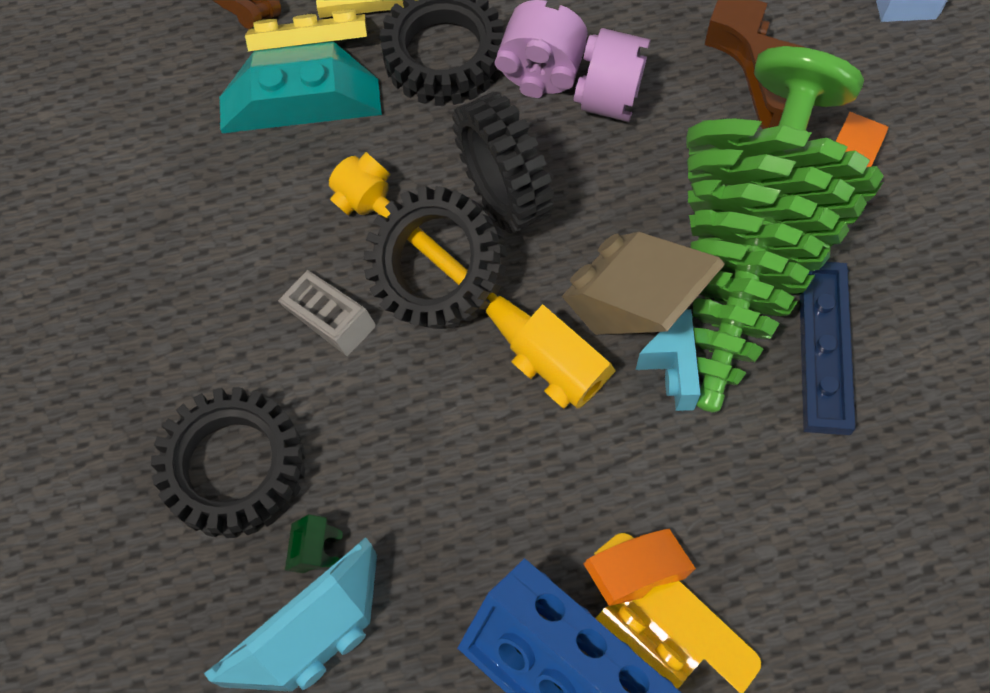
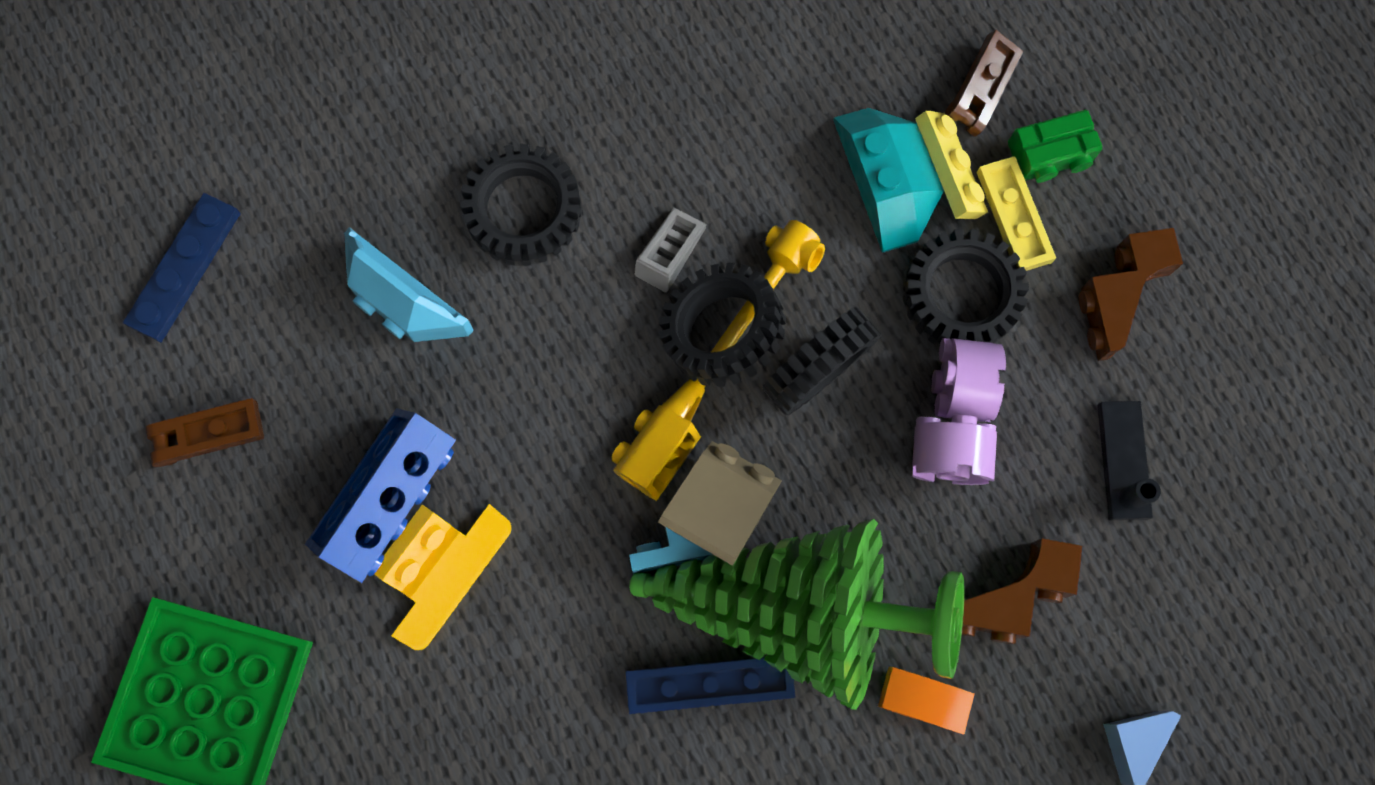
camera: 75 degrees right, 10 degrees up
(307, 543) = (463, 279): dark green tile -> none
(638, 565) = (478, 539): orange slope -> none

